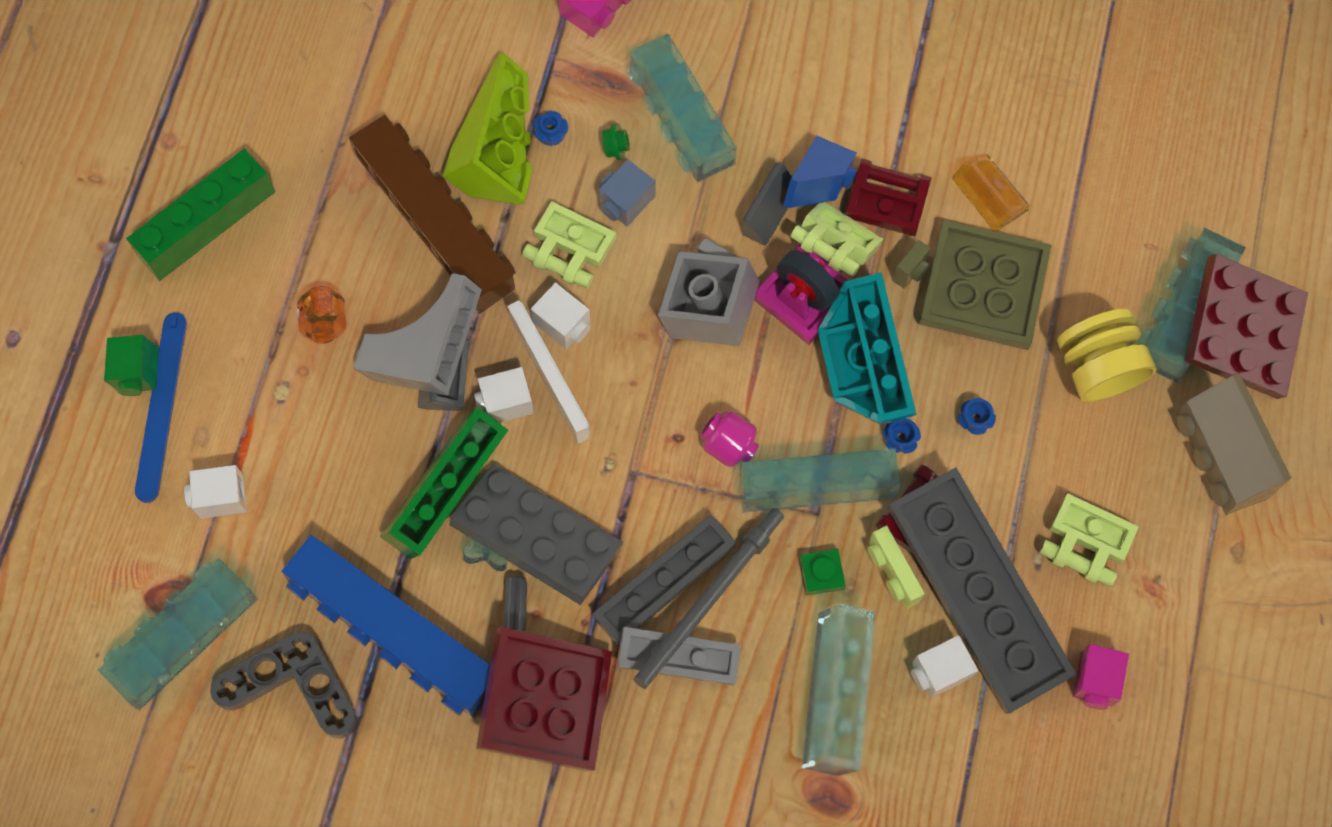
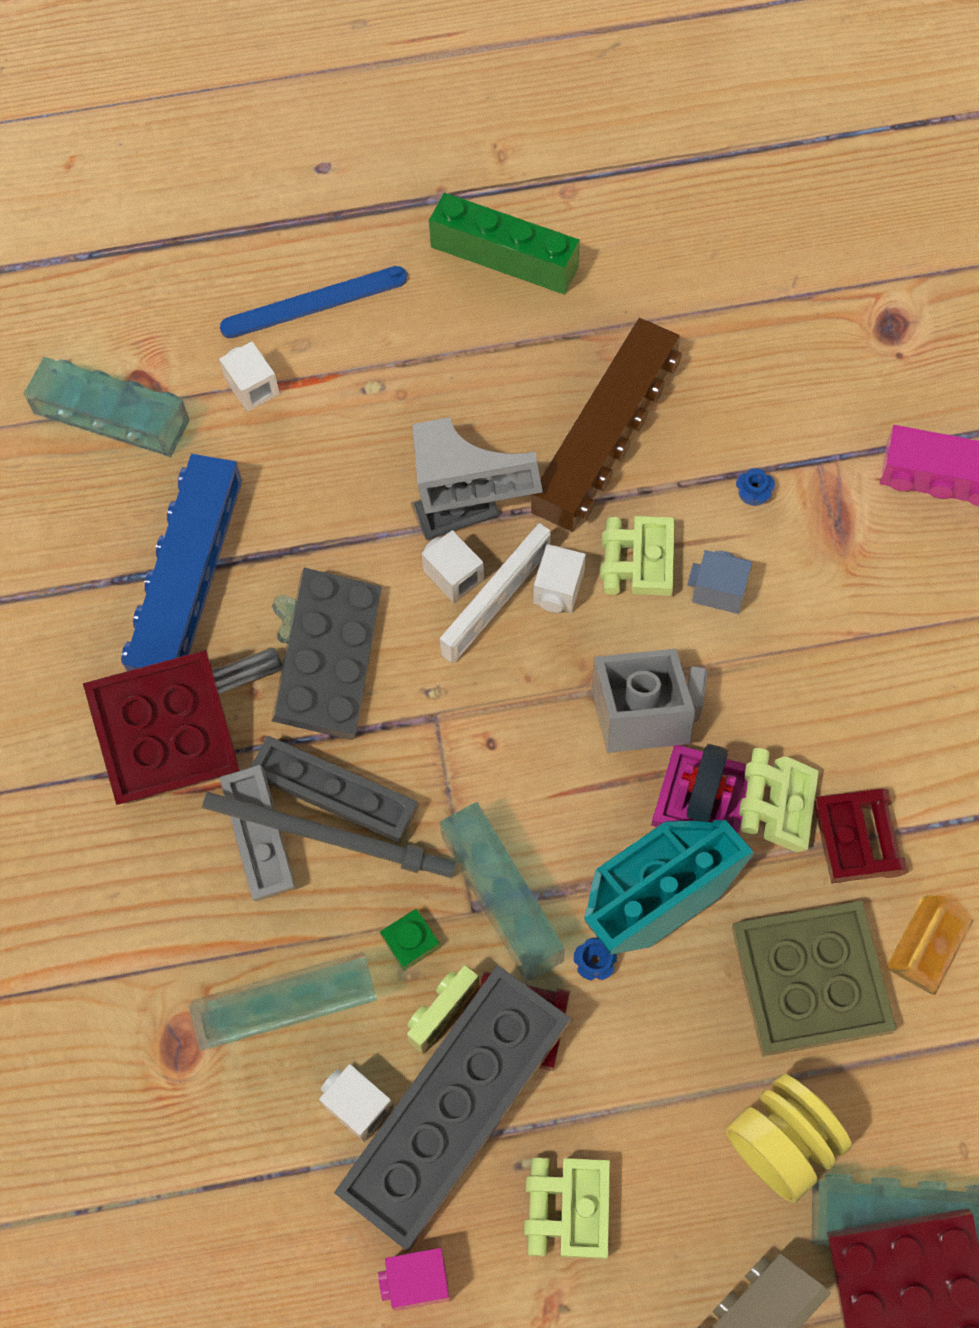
camera: 70 degrees right, 5 degrees down
(131, 364) = (335, 257): green brick -> none
(301, 670) = (114, 517): dark grey beam -> none
(321, 313) = (456, 379): clear orange head -> none
(443, 483) = (336, 548): green brick -> none
(492, 143) = (705, 444): lime wedge -> none
(615, 141) = (771, 548): green plate -> none
(682, 108) = (843, 592): clear light blue brick -> none
(729, 438) = (506, 786): dark pink head -> none
(767, 206) = (785, 721): dark grey slope -> none
(821, 174) = (841, 751): blue slope -> none
(912, 265) = (792, 890): olive plate -> none
(983, 409) = (661, 1019): blue plate -> none

